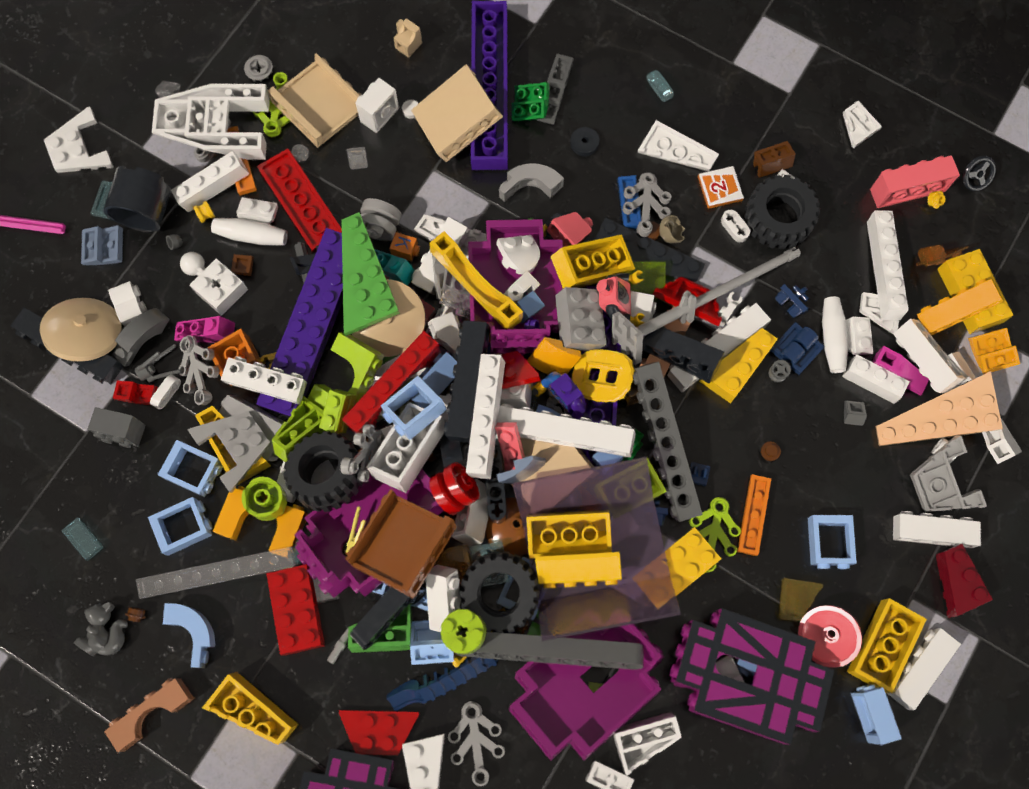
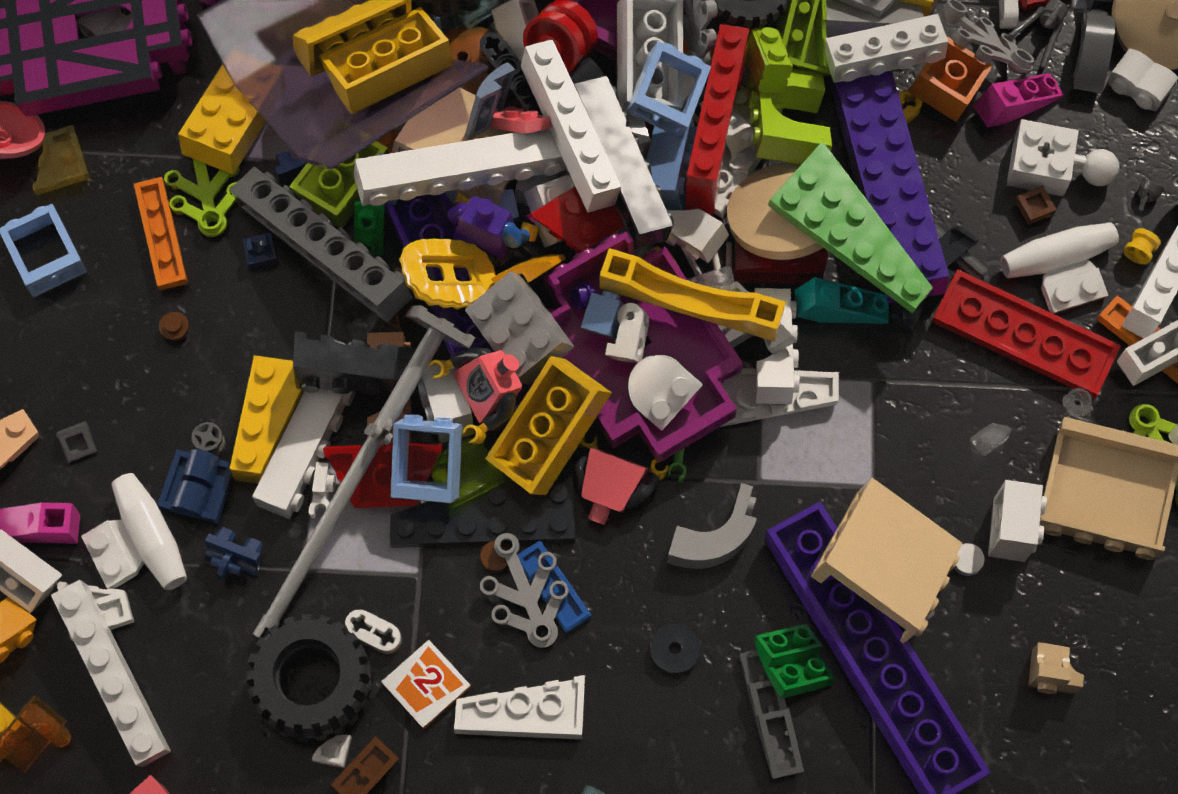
camera: 150 degrees right, 5 degrees down
(380, 219) = (893, 348): light grey wheel -> none
(404, 246) = (834, 341): orange brick -> none
(671, 229) = (464, 565): dark tan hair -> none
(682, 276) = (425, 490): none -> light blue window
(875, 379) = (88, 493): white brick -> none

